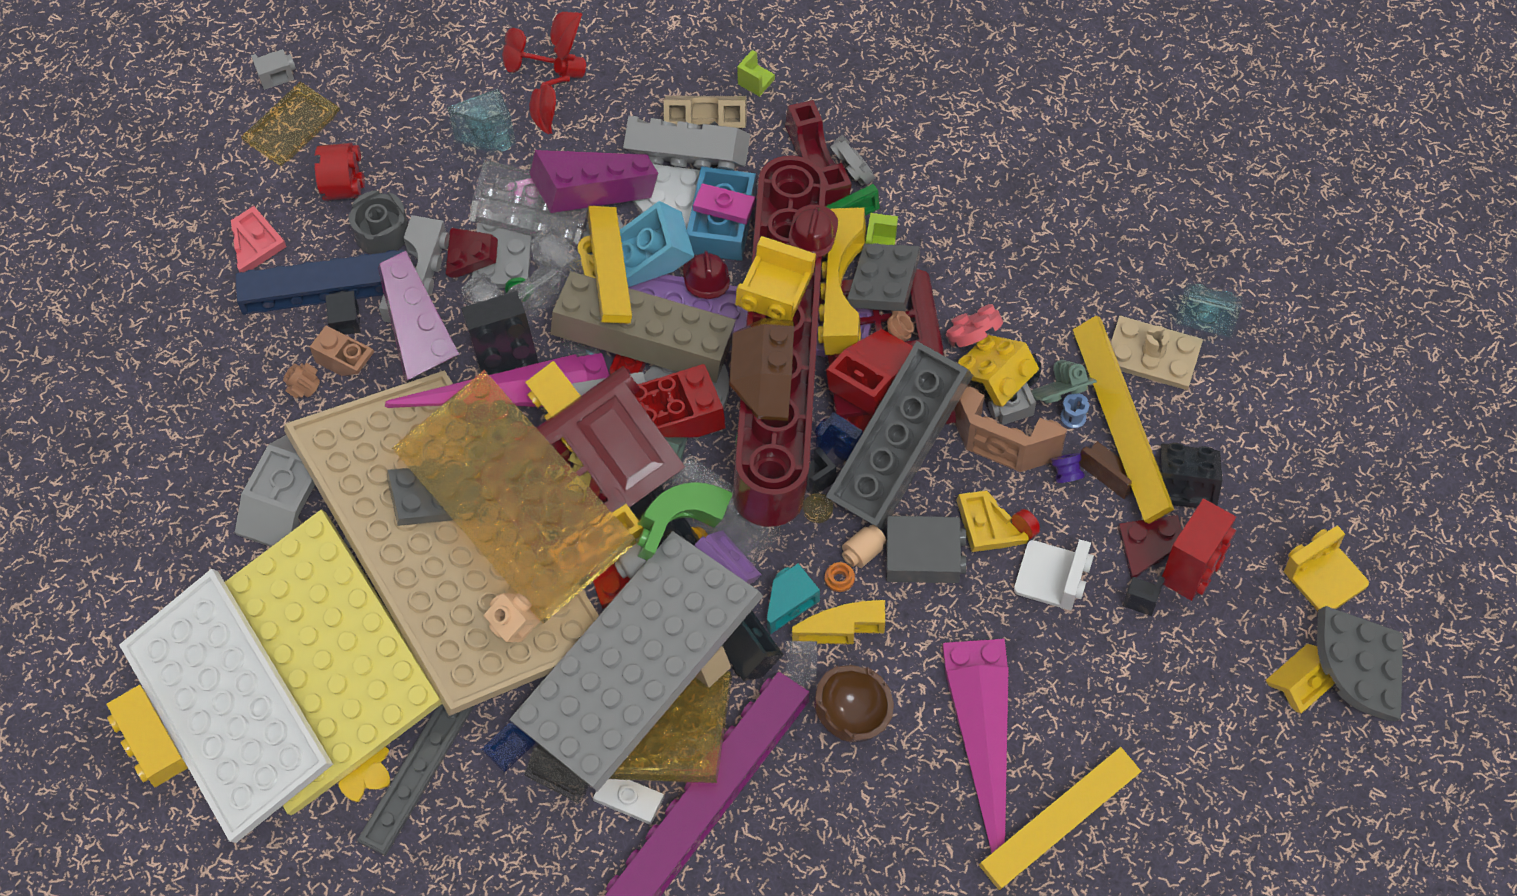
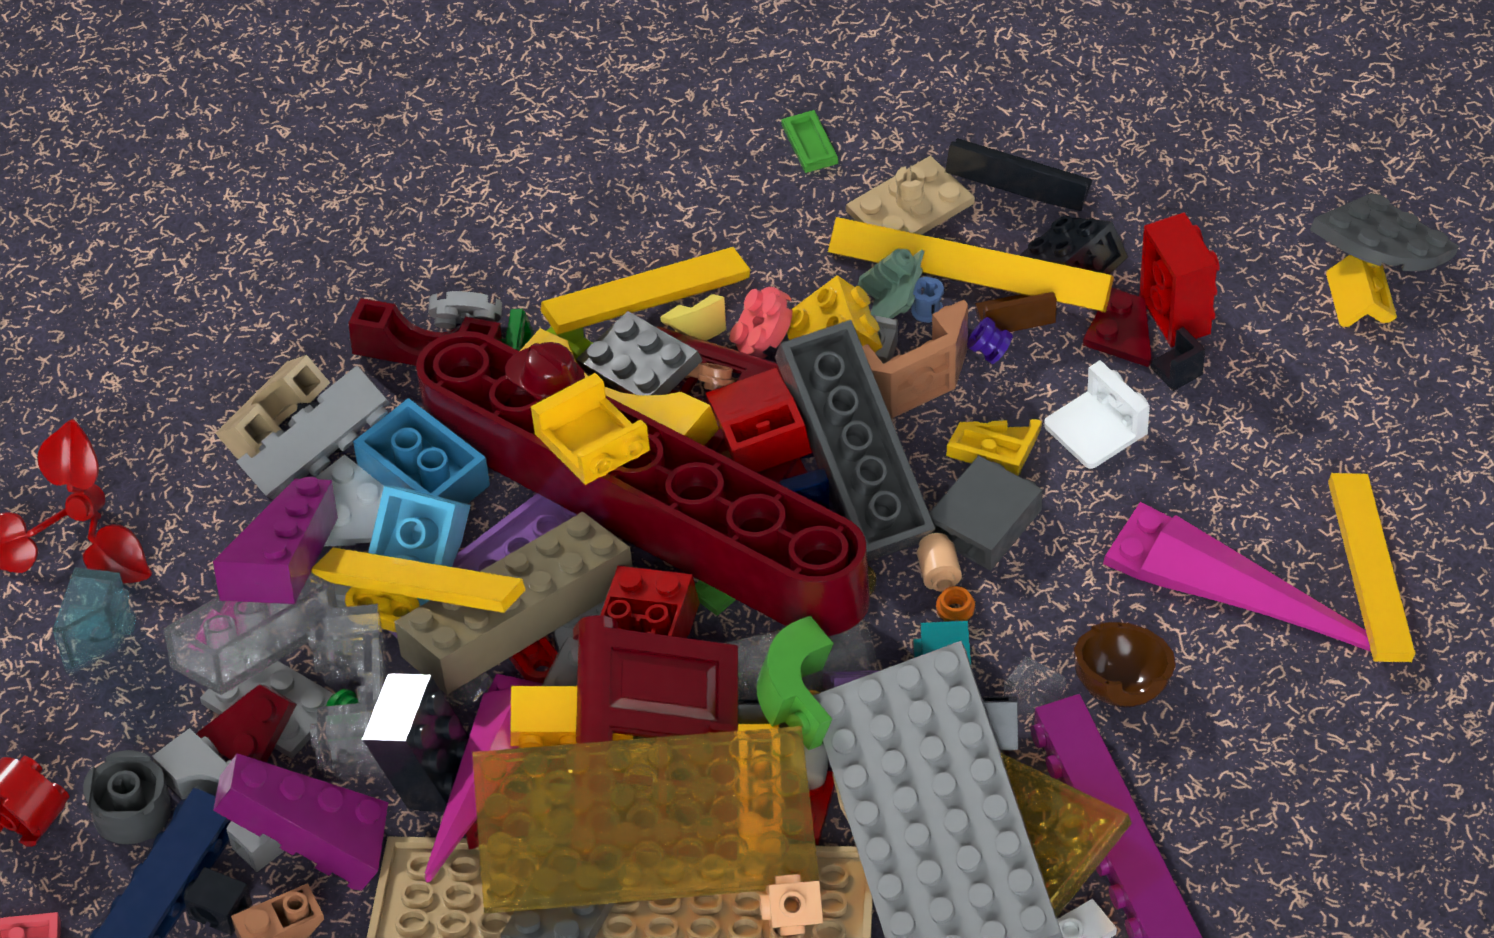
camera: 55 degrees left, 10 degrees down
(706, 276) = (492, 519): dark red piece -> none
(724, 203) = (425, 443): dark pink plate -> none
(753, 76) = (263, 345): lime panel -> none
(763, 367) = (698, 486): reddish brown wedge -> none
(841, 622) = (1018, 626): yellow slope -> none
(949, 246) = (644, 290): none -> yellow tile
(949, 292) = (700, 321): none -> light yellow slope
(1026, 522) = (1022, 410): red tile -> none
(1158, 263) = (809, 141): none -> bright green tile
(1209, 310) = (906, 127): clear light blue slope -> none
(1228, 400) = (1017, 175): none -> black panel
(1324, 571) = (1265, 212): yellow bracket -> none

